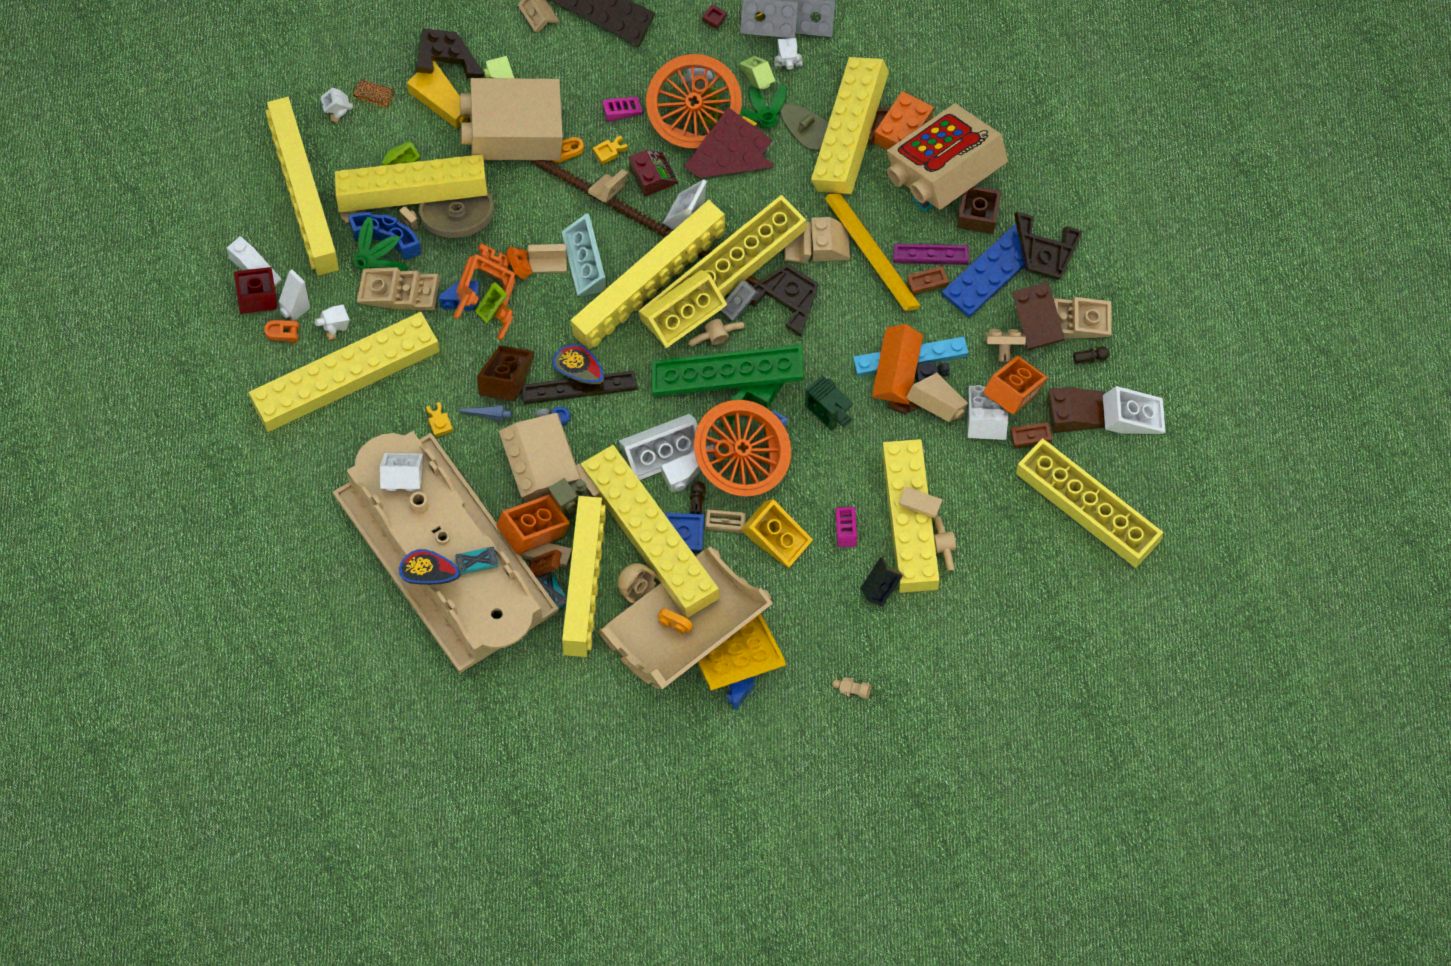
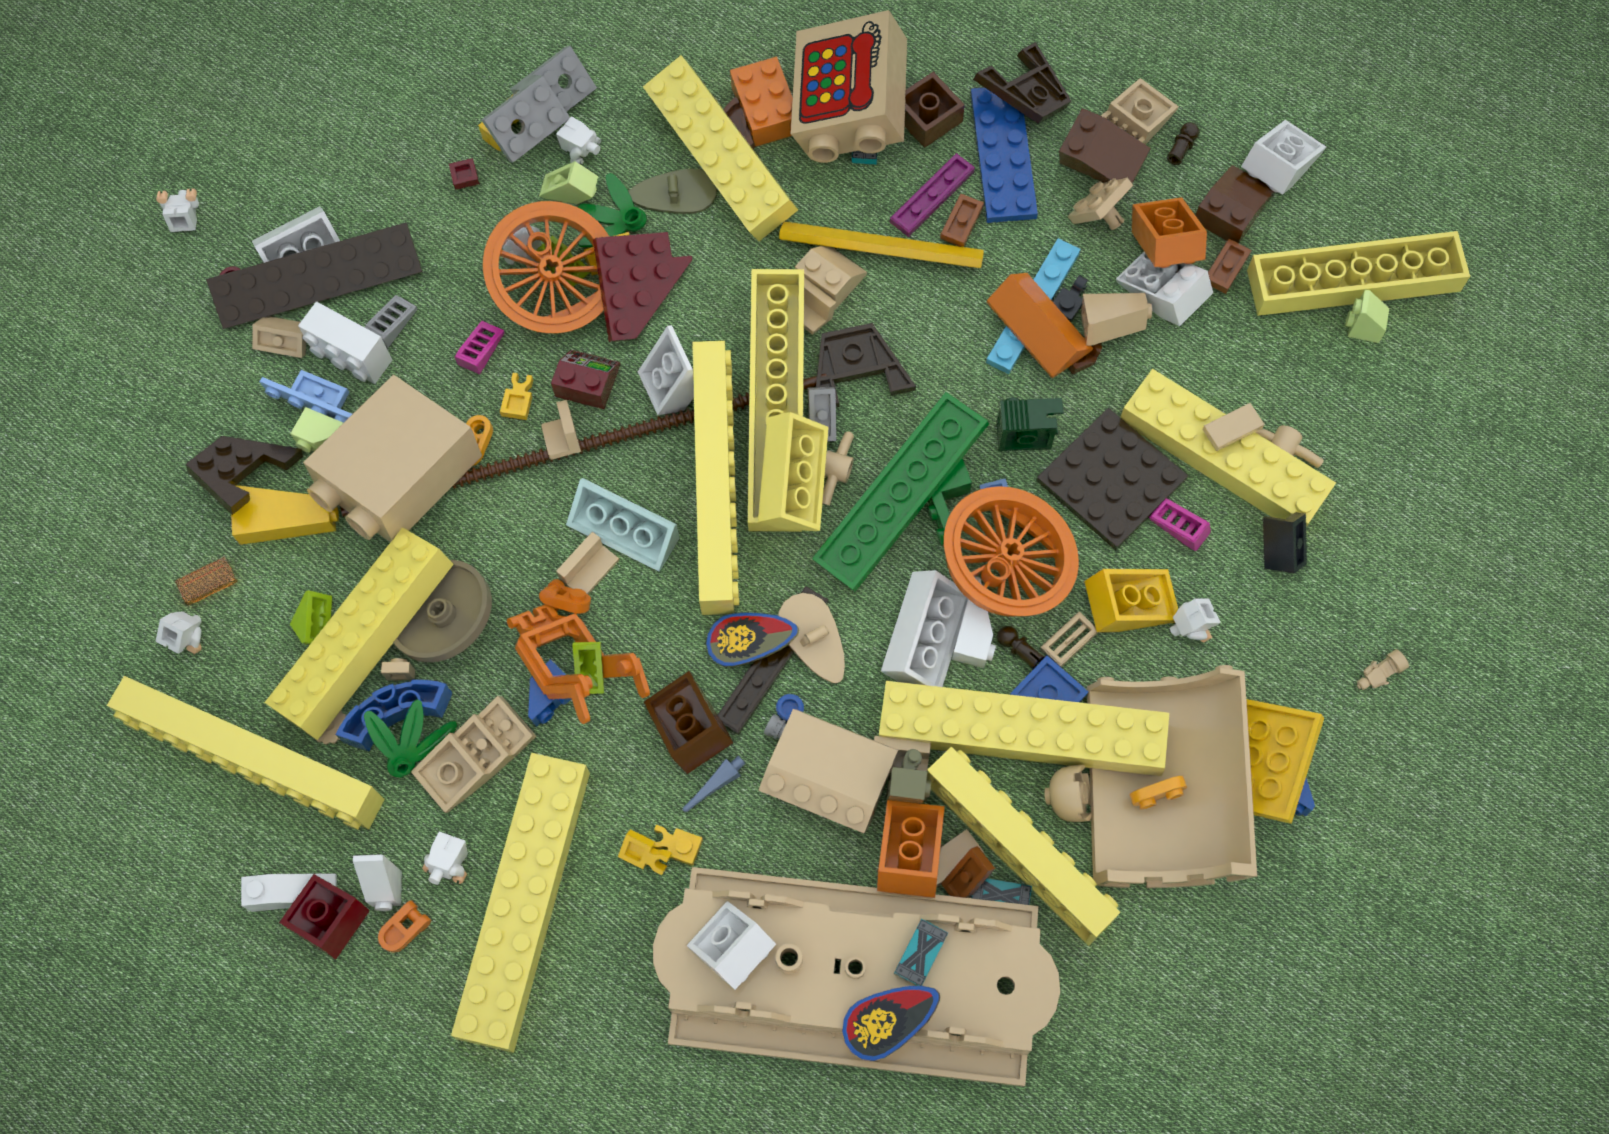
camera: 45 degrees left, 5 degrees up
(418, 407) = (640, 852): none -> yellow plate
(520, 53) = (311, 393): none -> light blue bracket
(558, 43) = (345, 343): none -> white brick
(595, 48) = (397, 325): none -> light grey slope
(610, 395) = (818, 636): none -> tan shield
(791, 570) = (1195, 619): none -> white piece
(841, 472) = (1111, 478): none -> dark brown plate
(1064, 528) = (1367, 318): none -> yellowish green slope

